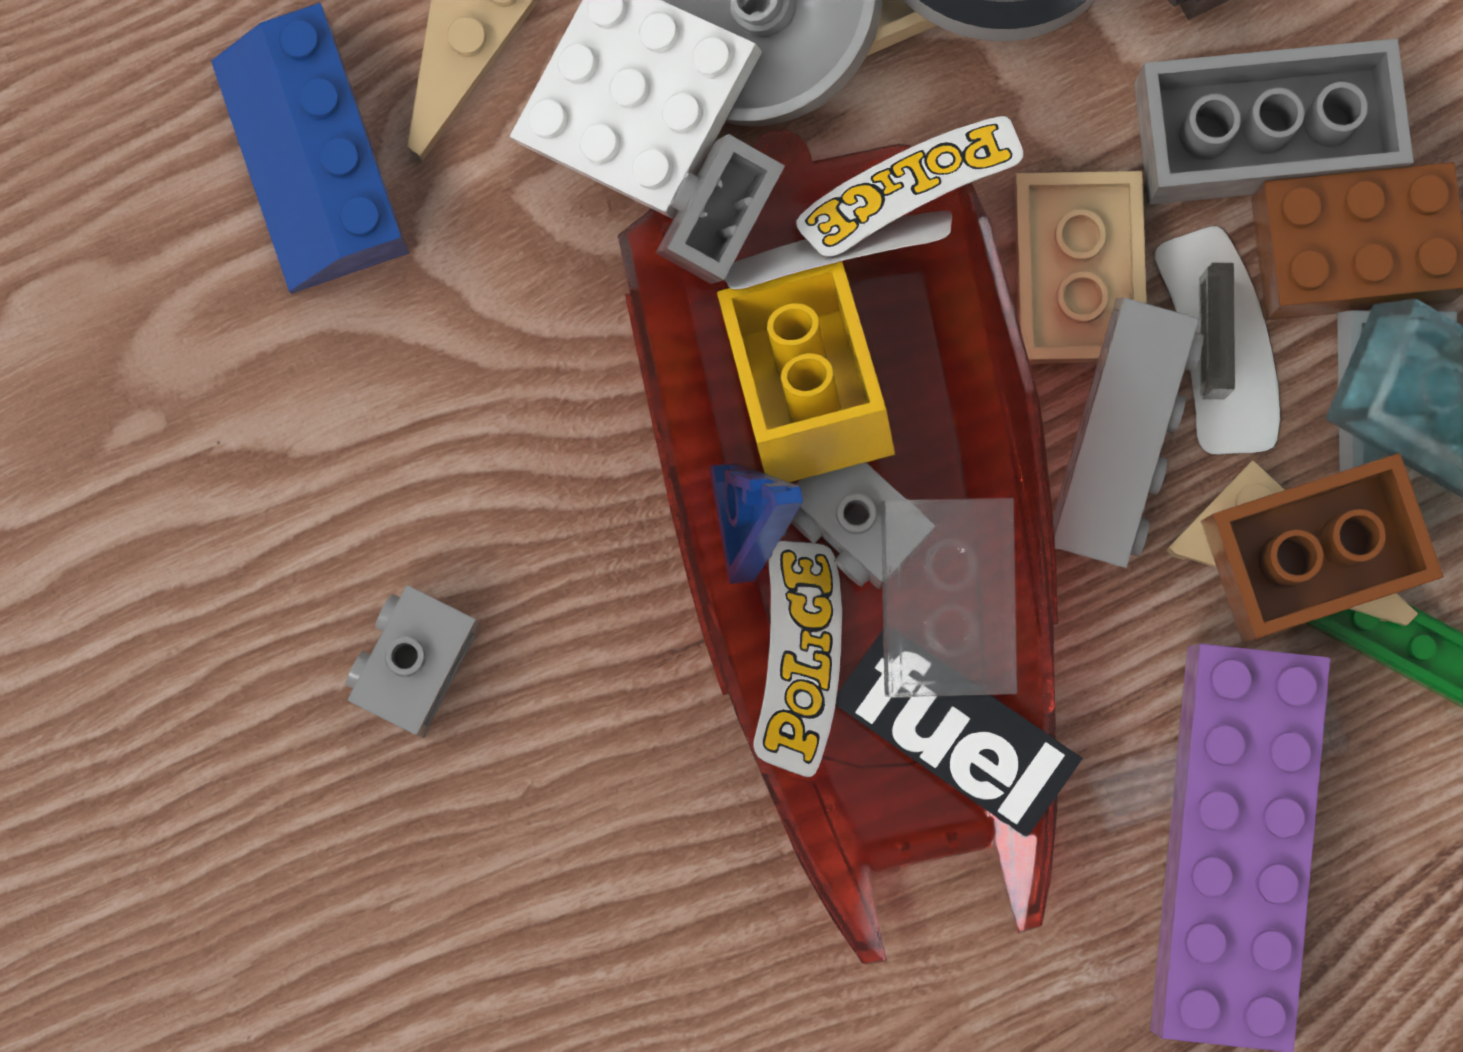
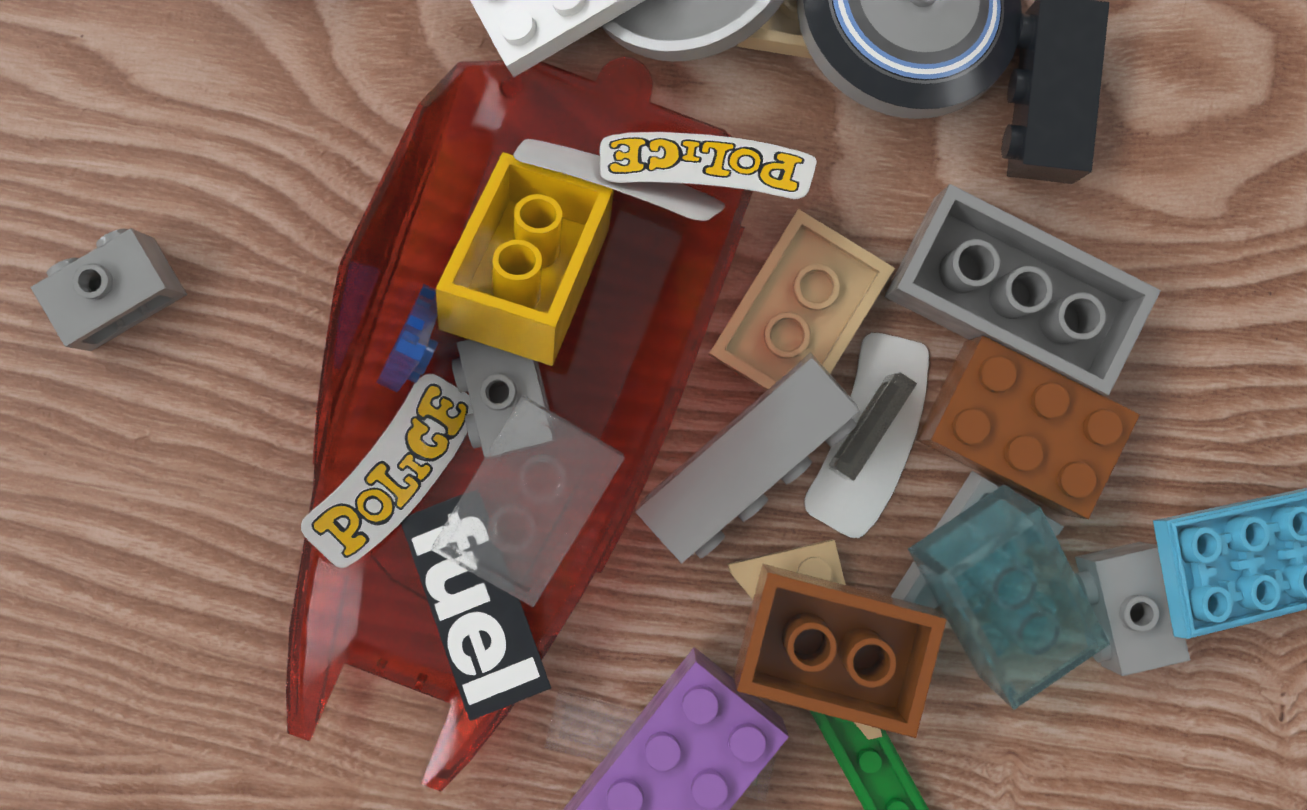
camera: 30 degrees right, 5 degrees up
(718, 208) = (544, 86): light grey brick -> none

